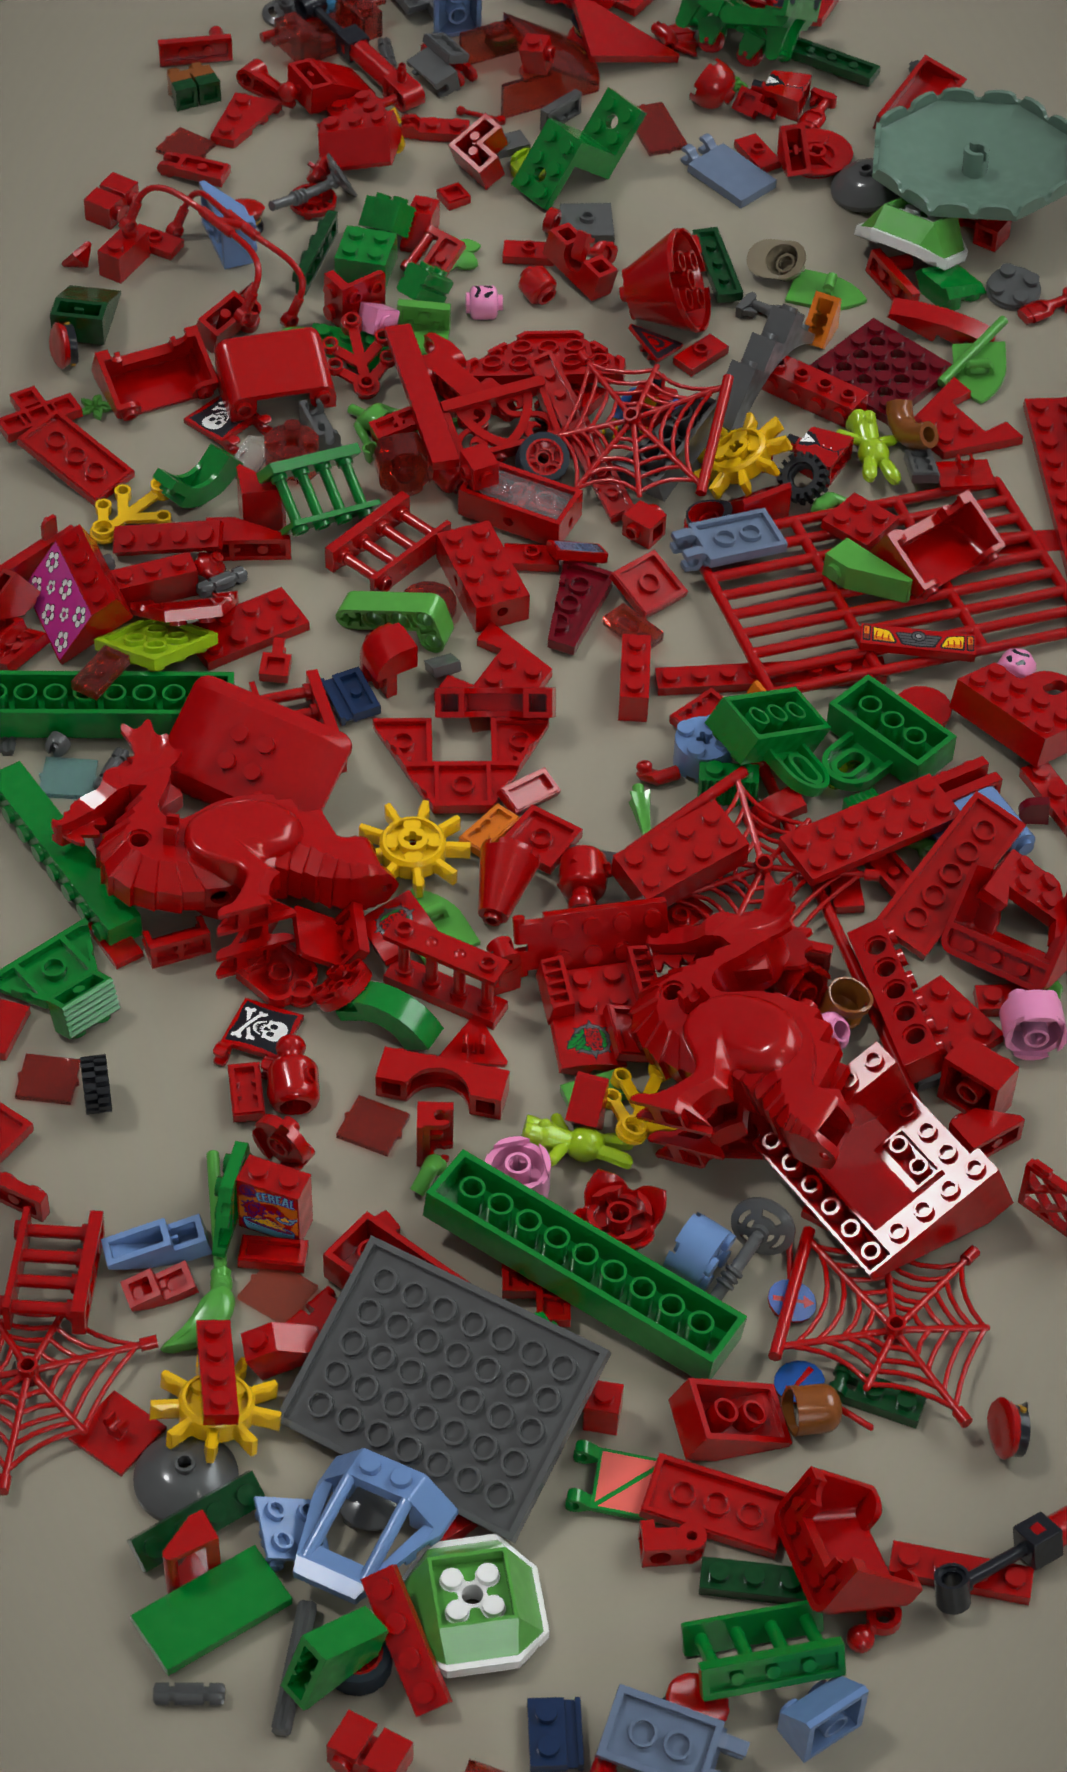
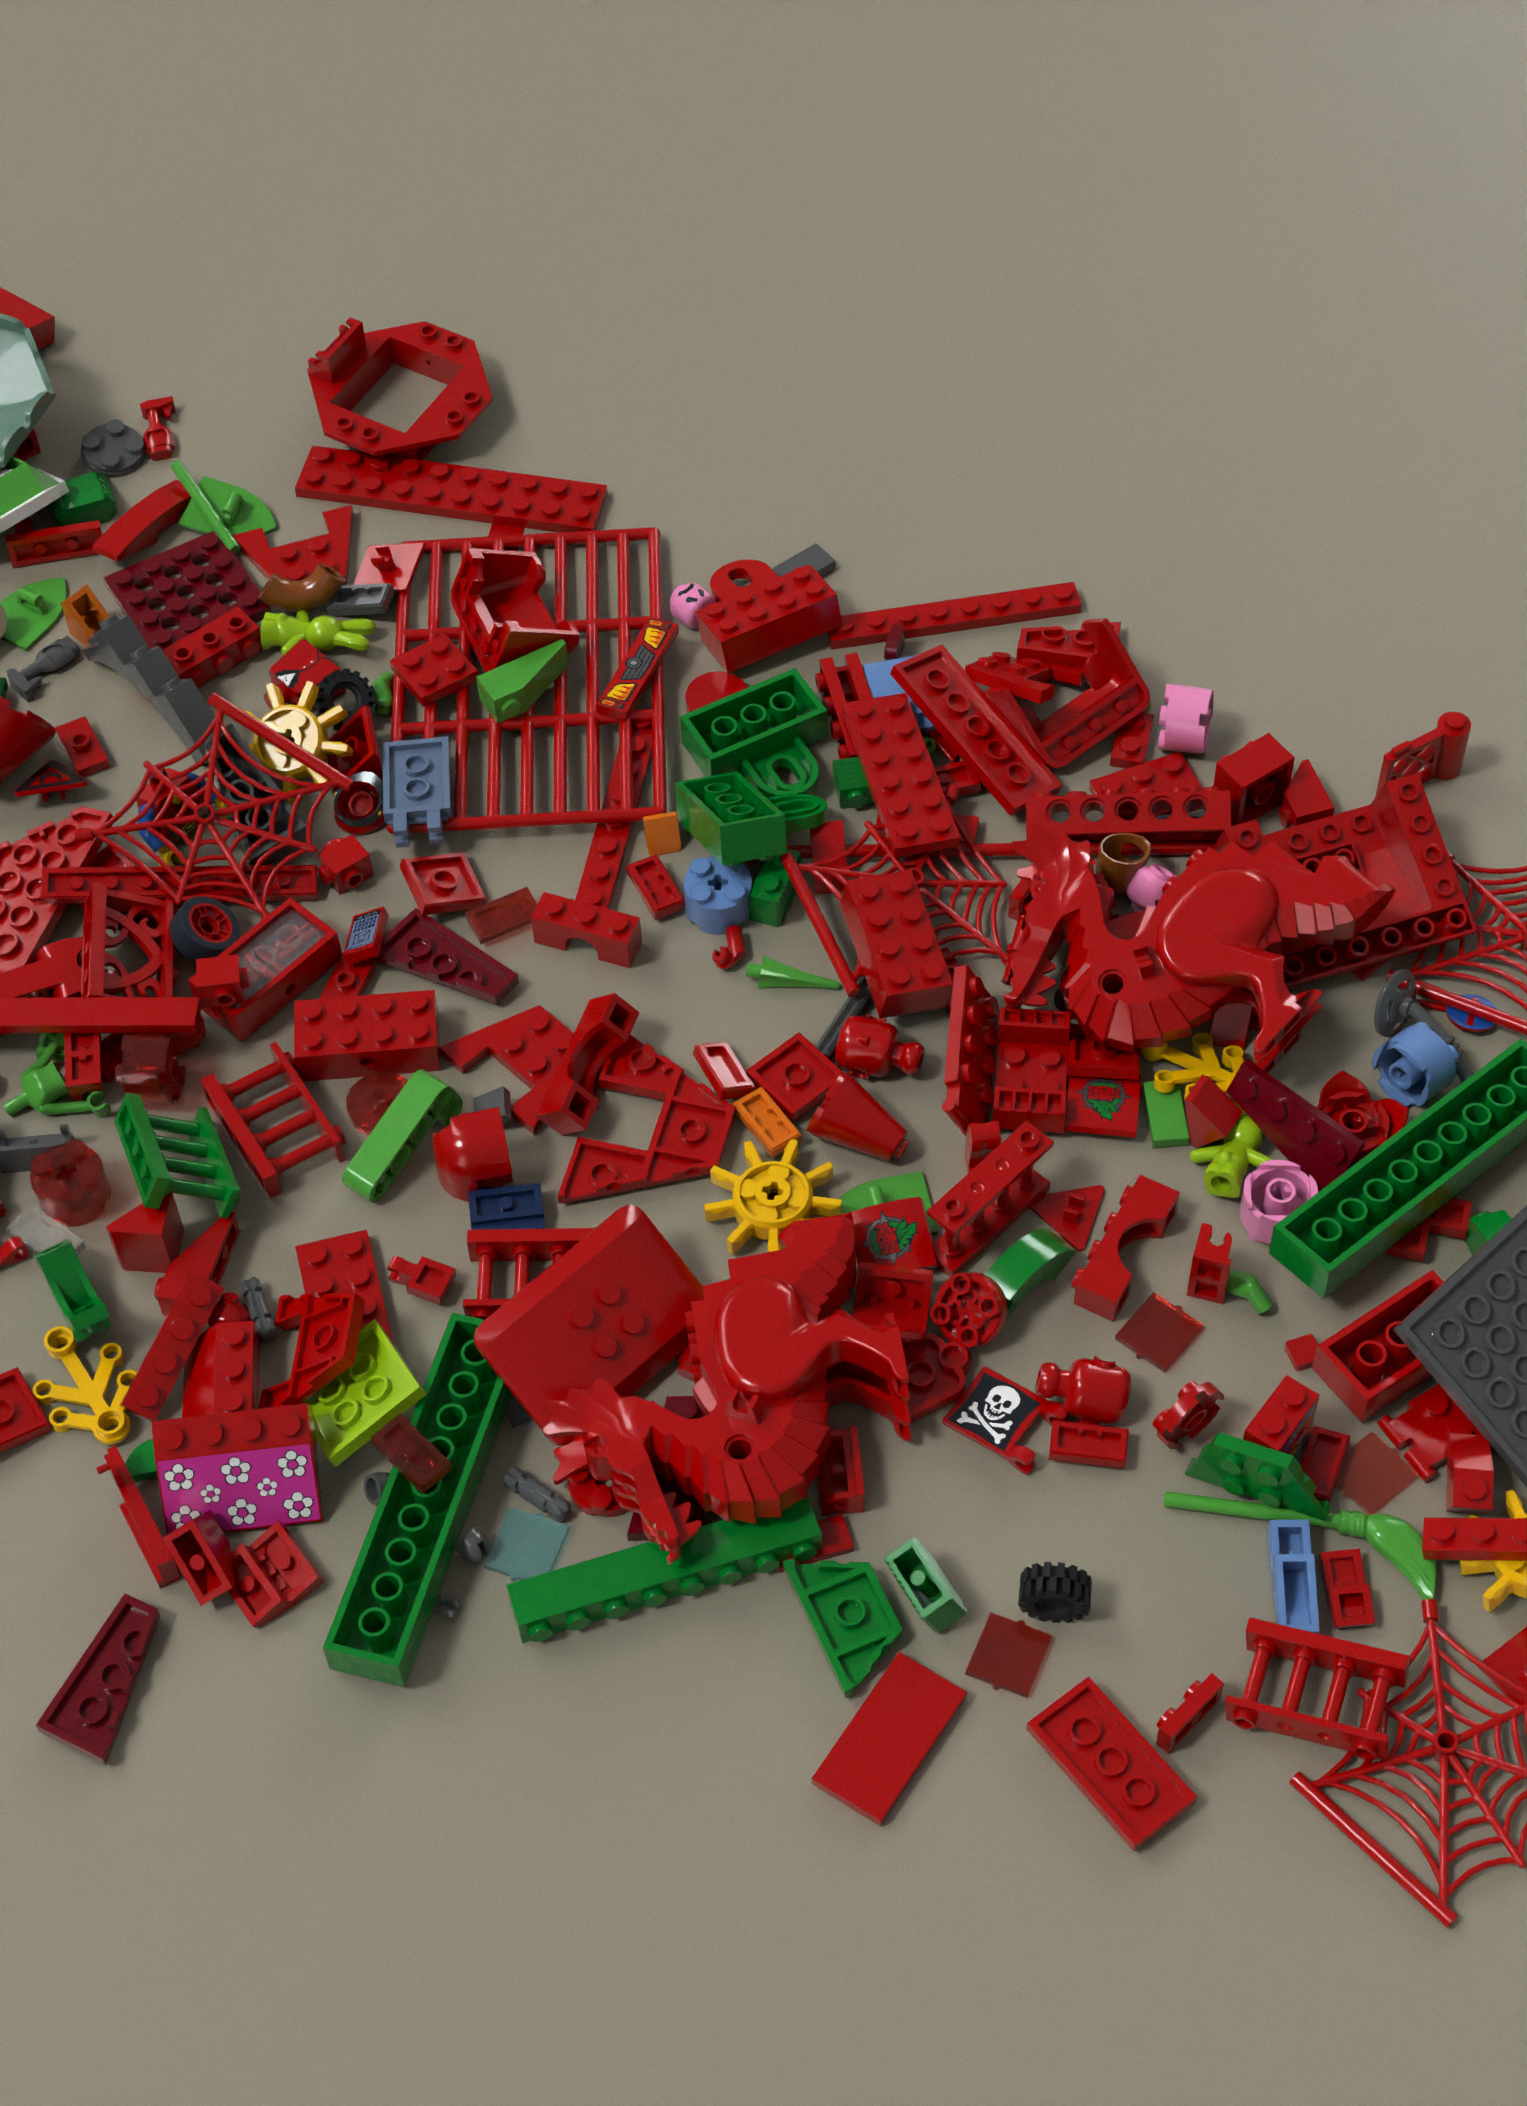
camera: 70 degrees left, 5 degrees up
(592, 1163) = (1295, 1125): none -> dark red wing

